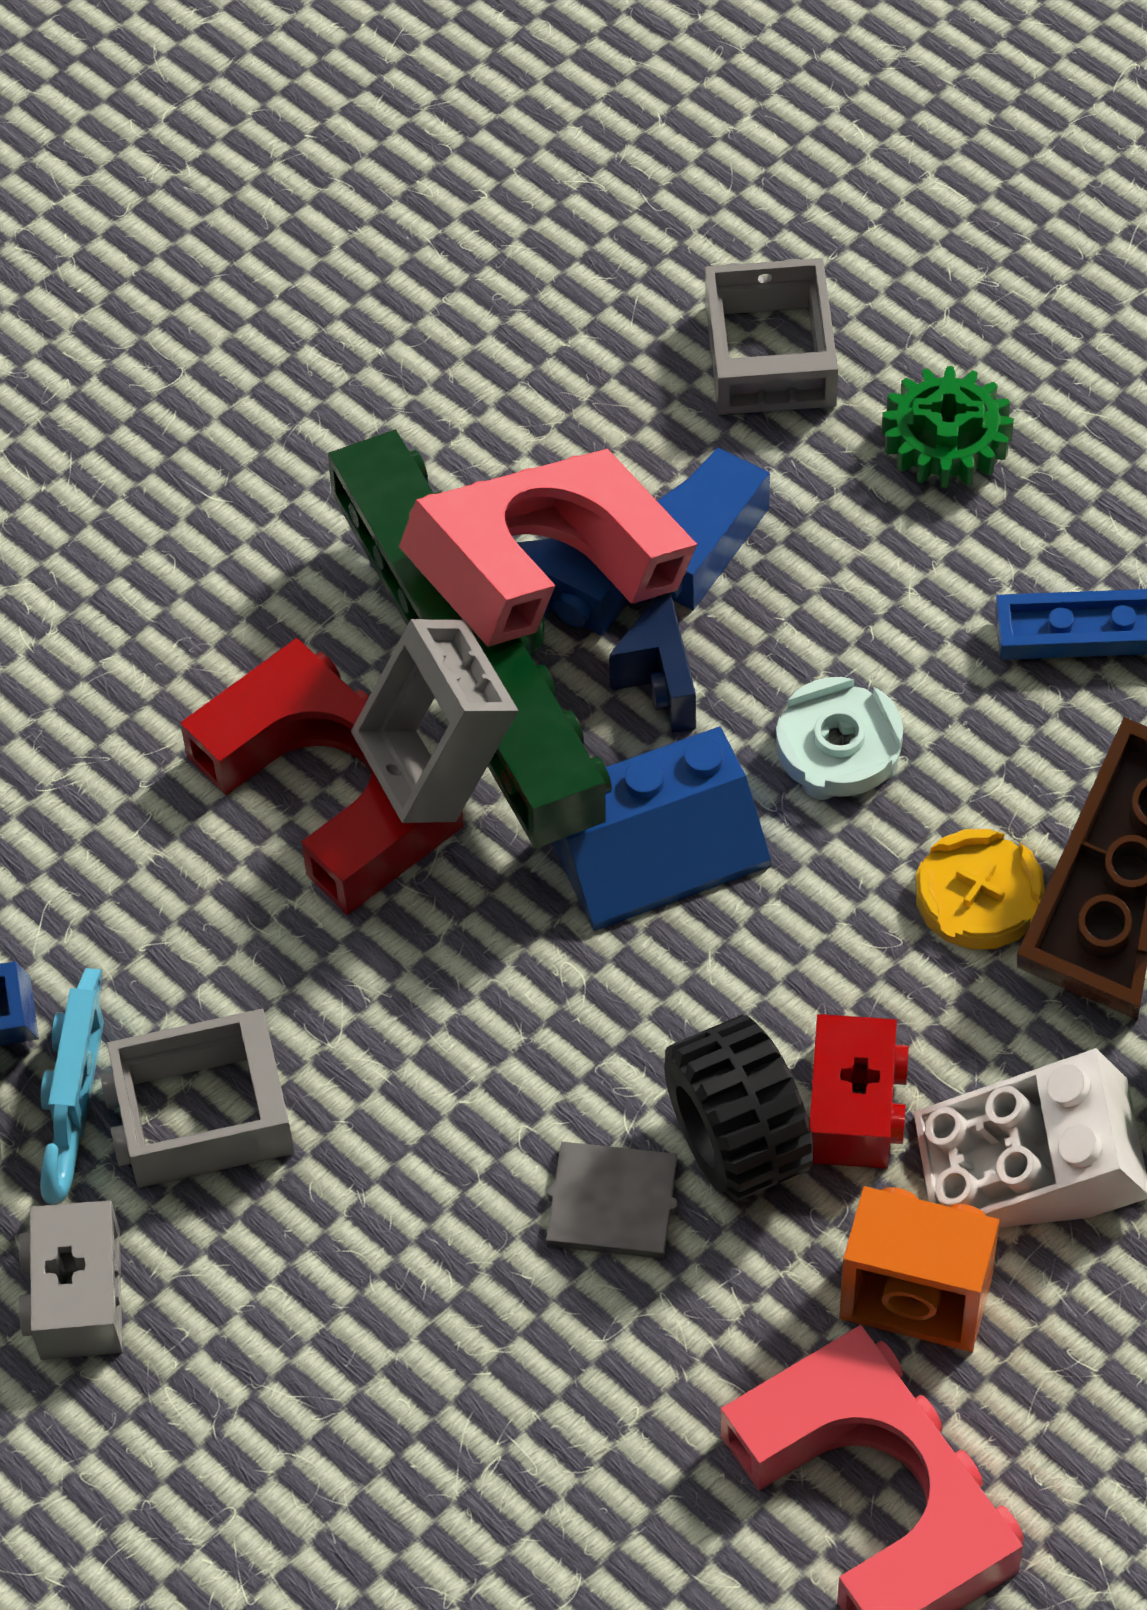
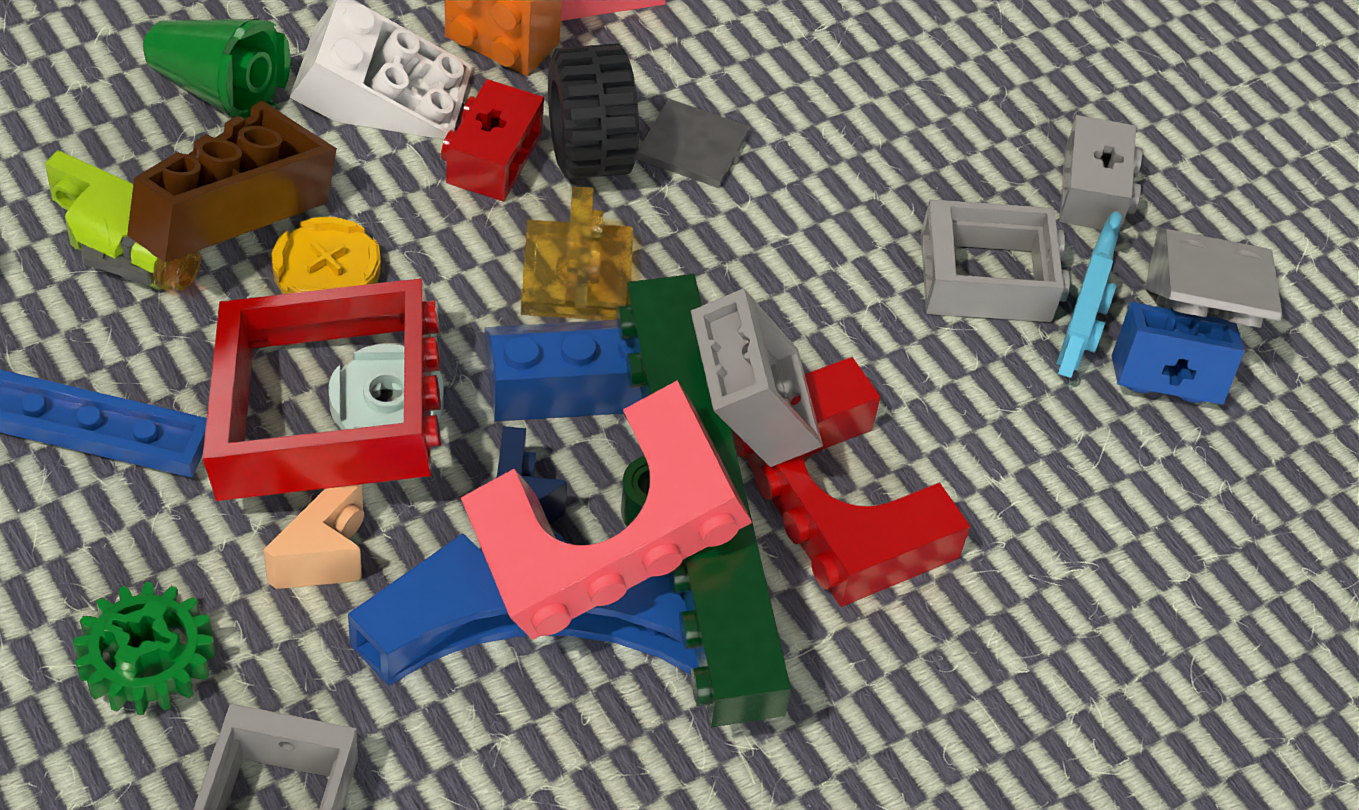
camera: 175 degrees left, 5 degrees down
(692, 958) = (576, 265): none -> clear yellow bracket
(834, 559) = (317, 542): none -> light nougat slope
(983, 640) = (330, 457): none -> red window

